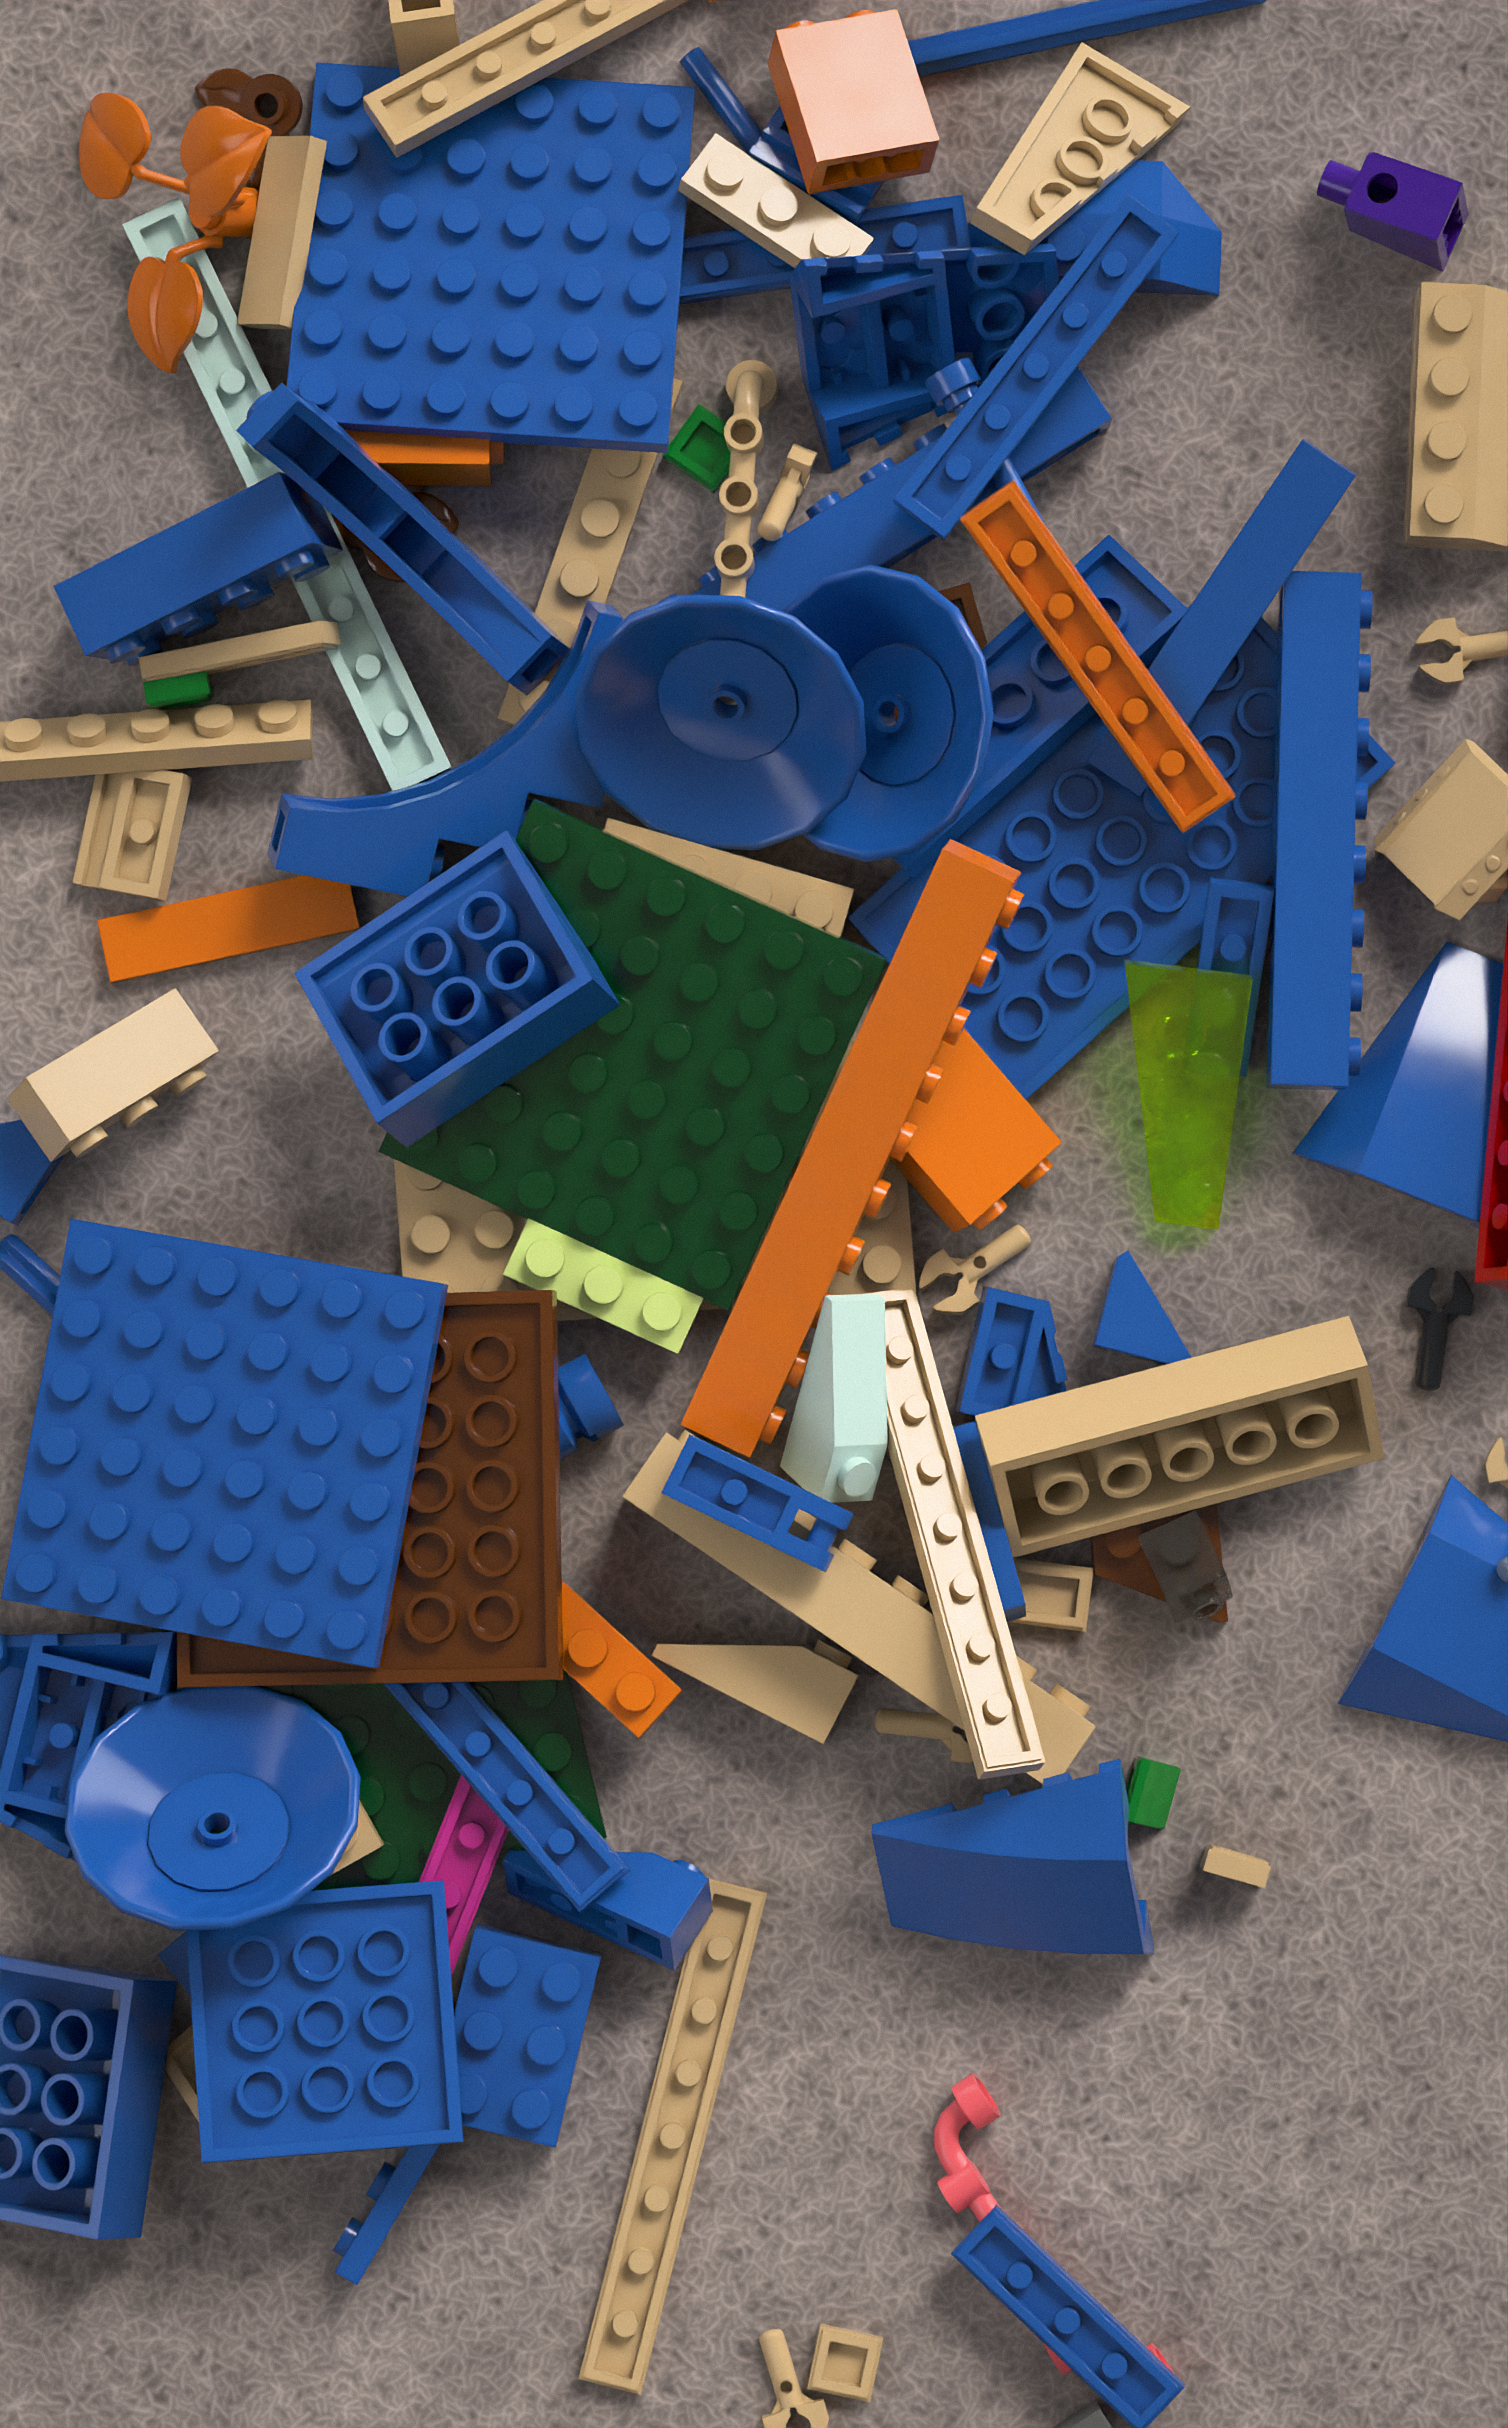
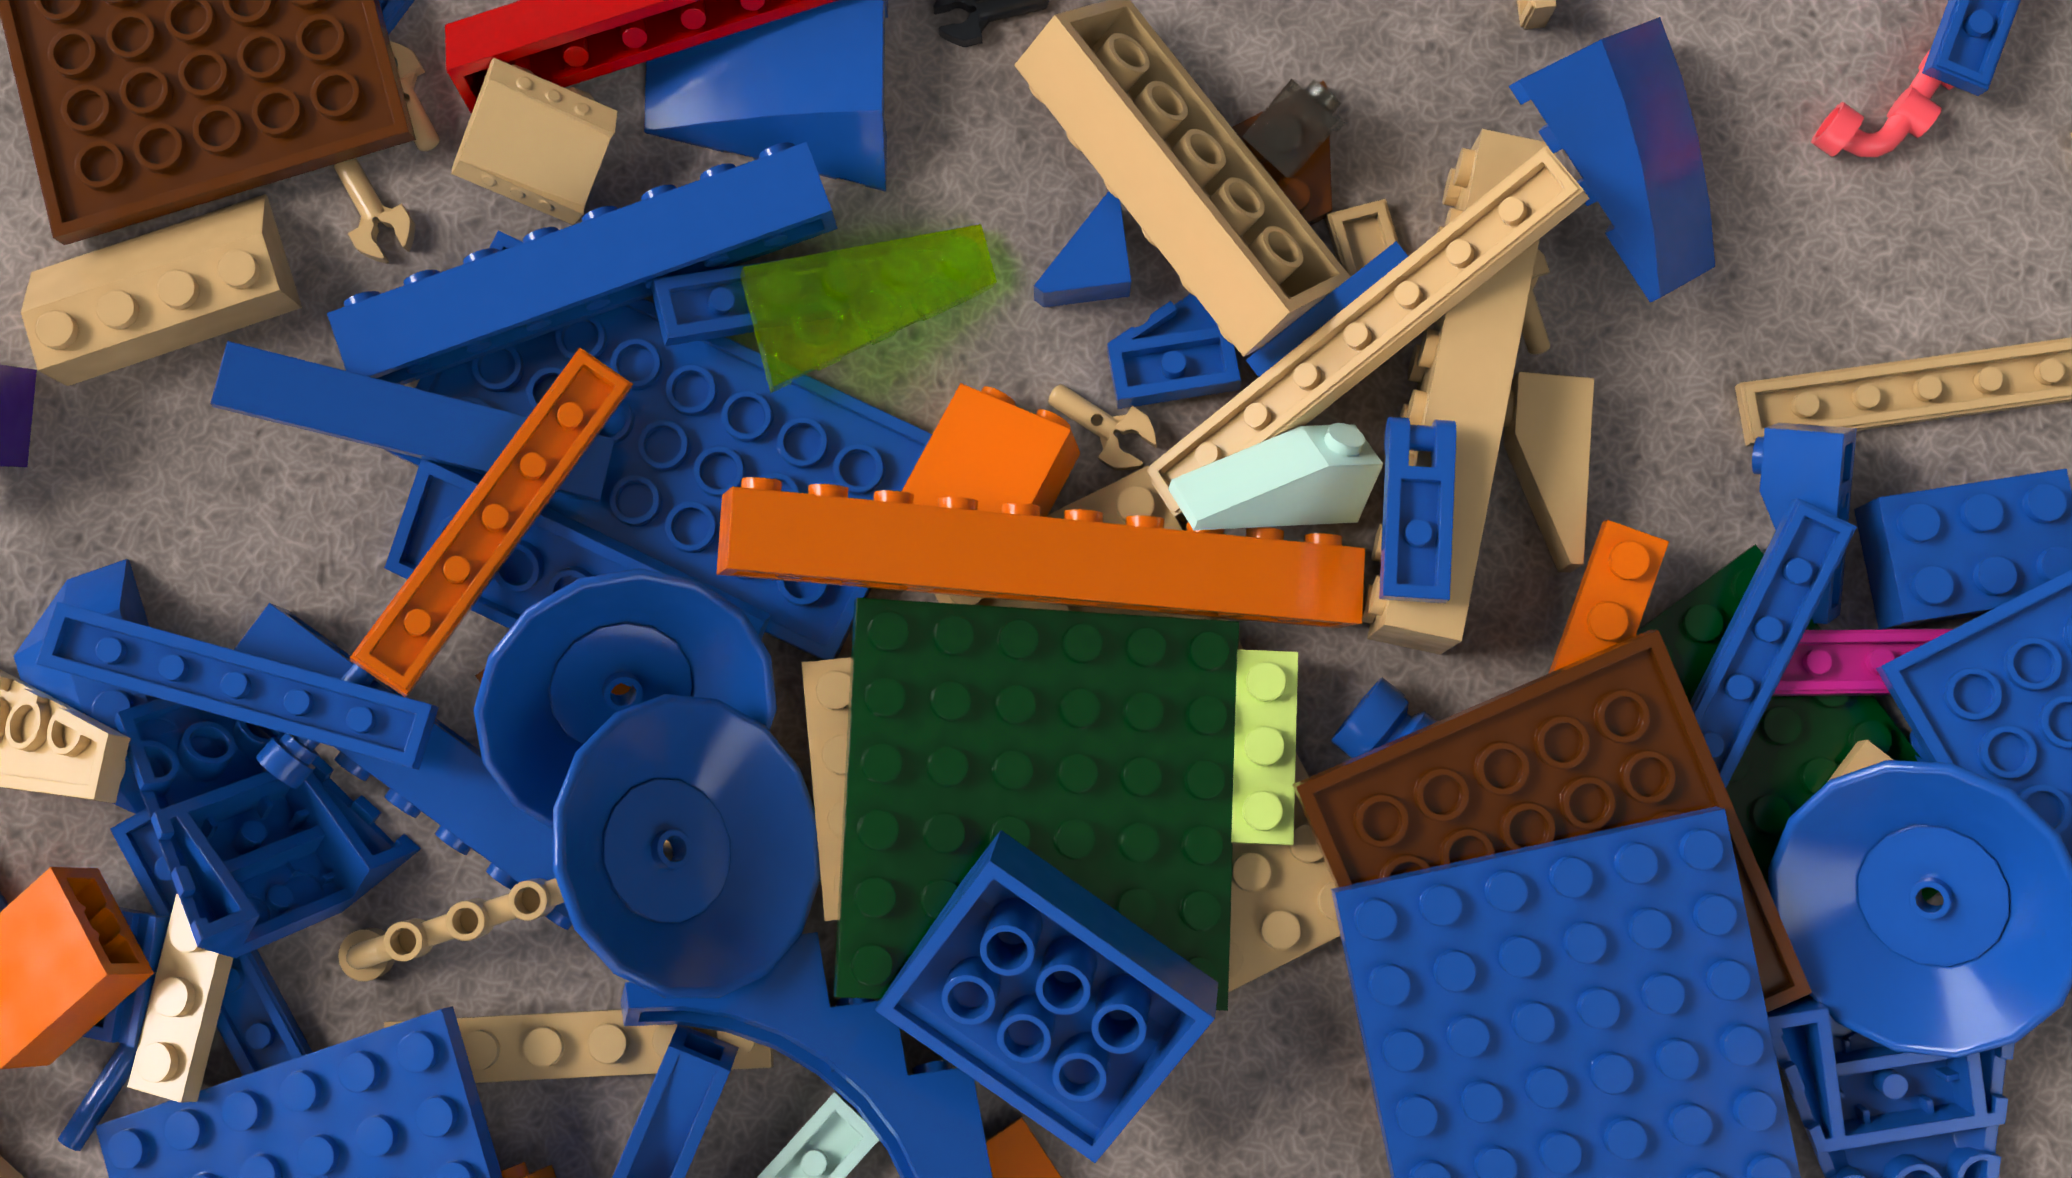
camera: 115 degrees left, 5 degrees down
(701, 449) = (443, 976): green tile -> none
(787, 492) = (451, 878): tan bar -> none
(1151, 1791) = (1491, 94): green slope -> none

